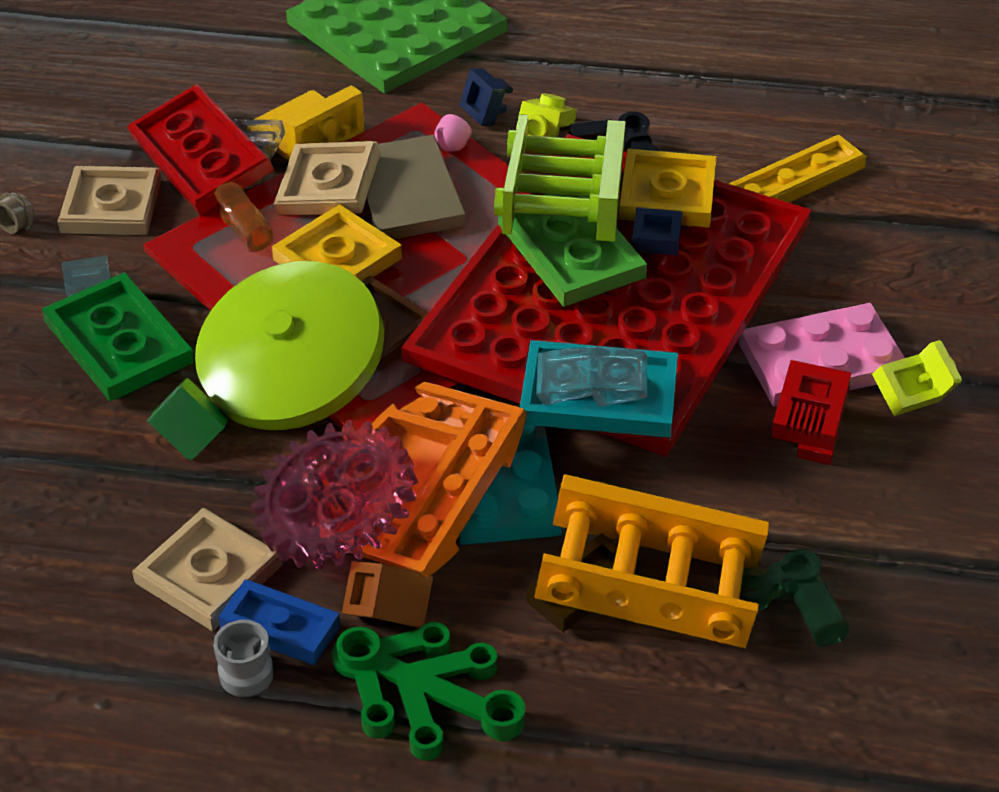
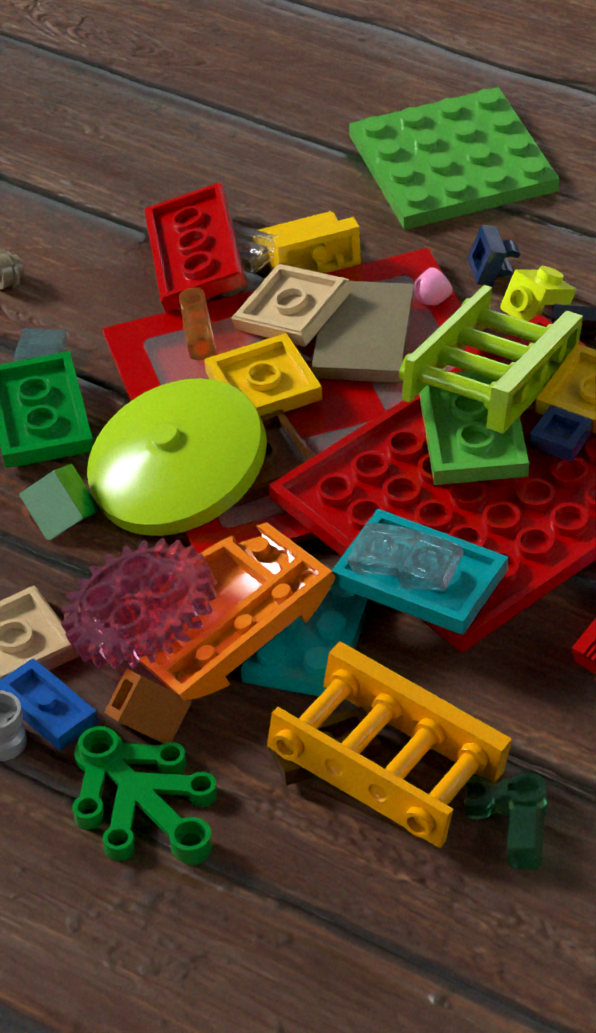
camera: 25 degrees right, 0 degrees up
(110, 200) = (97, 278): tan tile -> none

